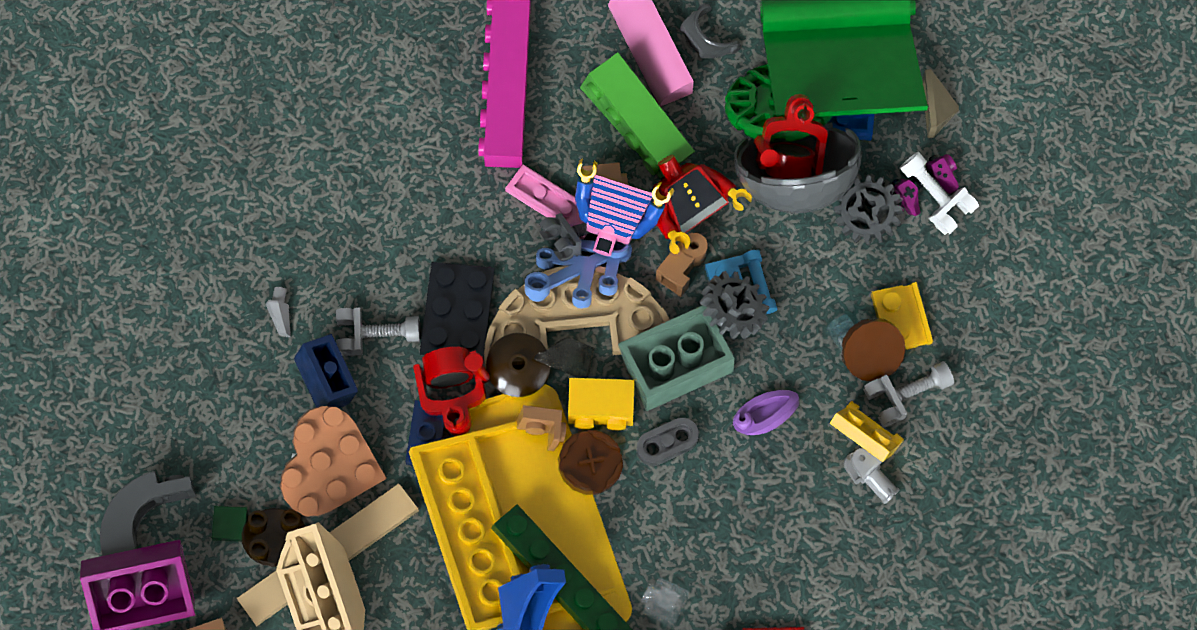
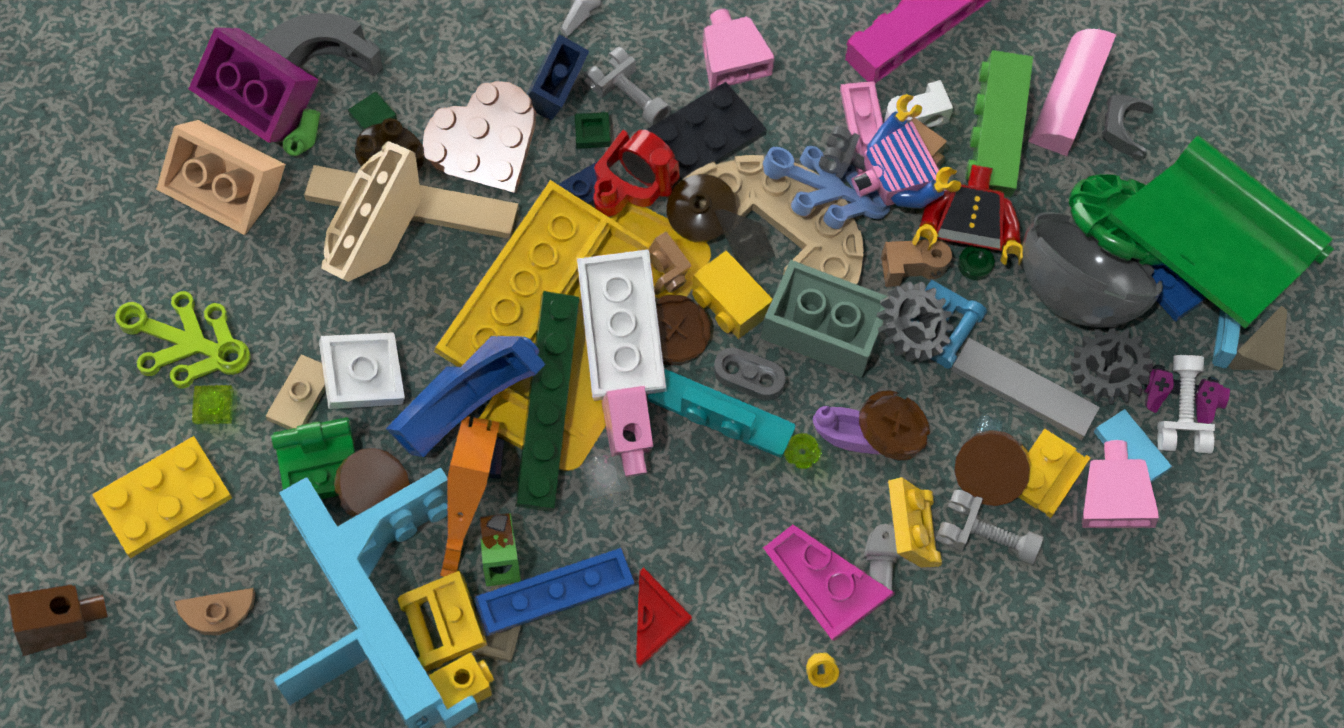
camera: 45 degrees right, 5 degrees down
(204, 586) = (305, 135): none -> bright green arm
(384, 384) = (592, 130): none -> dark green tile
(413, 234) = (734, 50): none -> bright pink torso
(560, 493) = (621, 323): none -> white tile
(579, 145) = (934, 103): none -> white leg
(631, 547) = (628, 411): none -> bright pink torso
(679, 483) = (724, 414): none -> teal bracket
(718, 225) = (976, 262): none -> dark green tile
(755, 449) = (806, 442): none -> clear neon green plate
(787, 383) = (894, 425): none -> reddish brown tile
(788, 159) = (1087, 257): red piece -> none
(833, 277) = (1025, 389): none -> light grey tile
(854, 522) = (826, 583): none -> dark pink wing
(909, 569) = (830, 666): none -> yellow hinge
(915, 126) = (1226, 340): none -> medium azure tile
(932, 250) = (1138, 444): none -> medium azure tile
(955, 287) = (1119, 491): none -> bright pink torso

